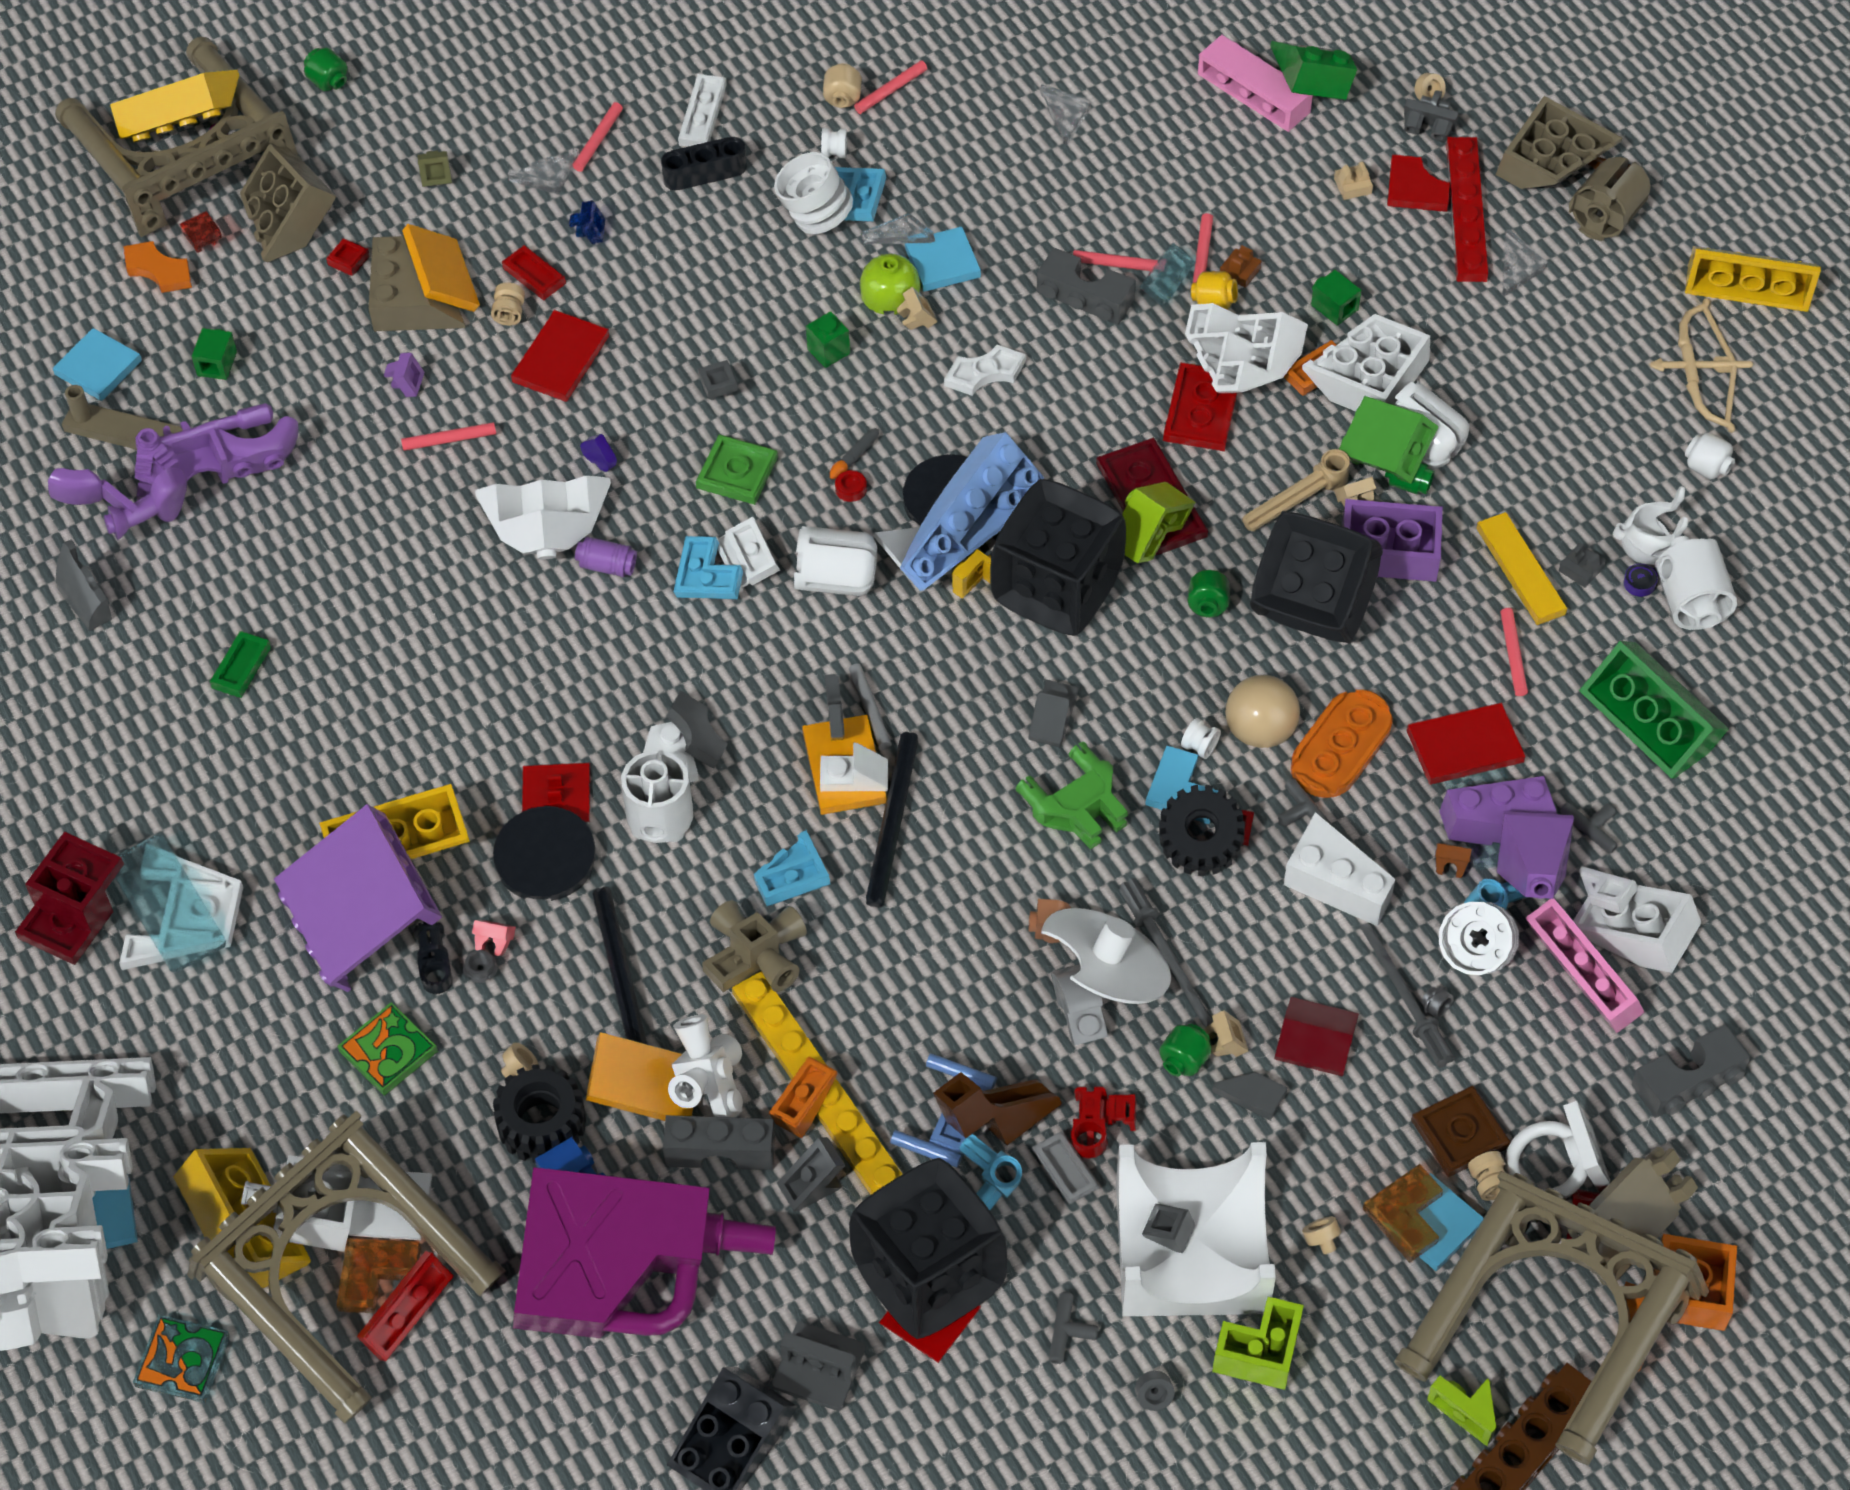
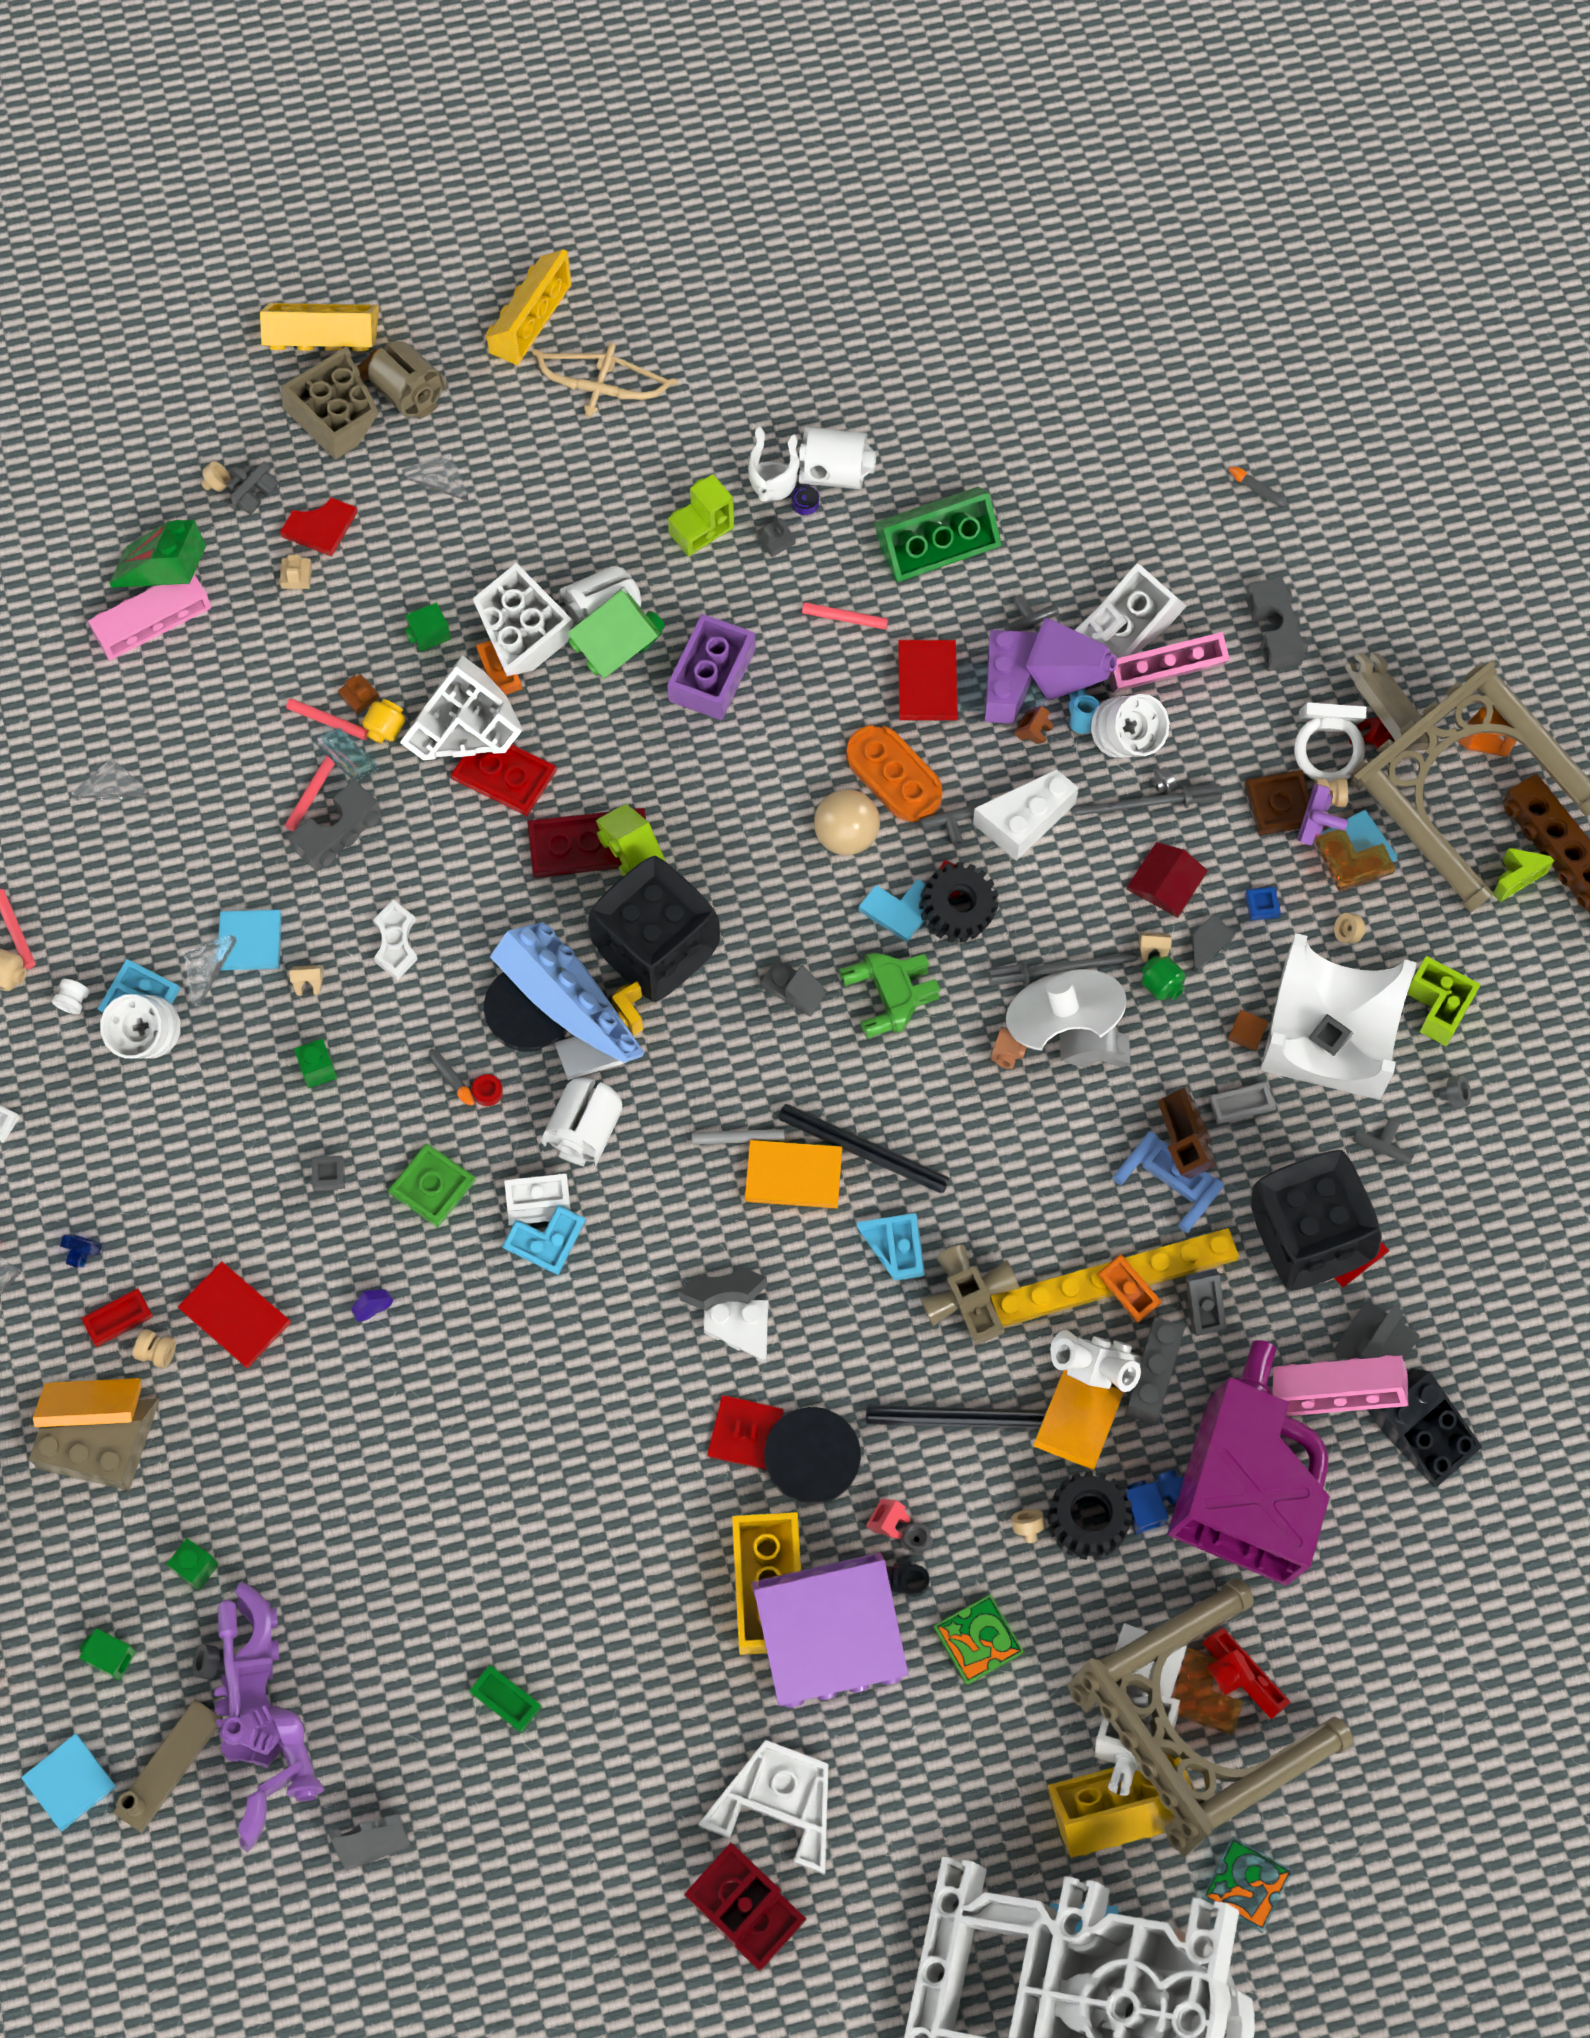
camera: 75 degrees left, 10 degrees up
(168, 904) = (773, 1813): clear light blue piece -> none
(310, 388) = (192, 1564): none -> green brick
(347, 257) = (23, 1496): red tile -> none
(396, 1280) = (1231, 1672): none -> red plate
(406, 374) = (207, 1468): medium lavender tile -> none
(448, 436) = (295, 1443): coral bar -> none
(545, 513) = (435, 1370): white brick -> none
(606, 557) = (499, 1325): medium lavender head -> none
(657, 796) = (798, 1335): white cylinder -> none
(703, 163) = (40, 1110): black beam -> none
(744, 1320) = (1342, 1385): none -> bright pink brick
(834, 707) = (743, 1162): dark grey tile -> none
(854, 773) = (812, 1166): white slope -> none
(886, 280) = (265, 993): lime cylinder -> none
(990, 1161) = (1233, 1157): medium azure axle -> none
(1094, 1113) = (1198, 1060): red piece -> none
(1159, 1151) = (1248, 1030): none -> dark orange tile
(1200, 738) = (861, 877): white wheel -> none
(1209, 591) = (715, 825): green head -> none
(1316, 577) = (756, 728): black piece -> none
(1321, 478) = (622, 702): tan axle -> none
(1323, 1139) = (1262, 903): none -> blue tile
(1358, 490) = (645, 679): tan tile -> none
(1439, 1155) = (1316, 818): none -> medium lavender plate
(1467, 209) = (363, 494): red plate -> none
(1521, 568) = (763, 582): yellow tile -> none
(1568, 489) = (705, 518): none -> lime brick
(1643, 116) = (319, 325): none -> yellow slope
(1709, 455) = (704, 404): white head -> none
(1718, 1267) = (1450, 667): orange brick -> none

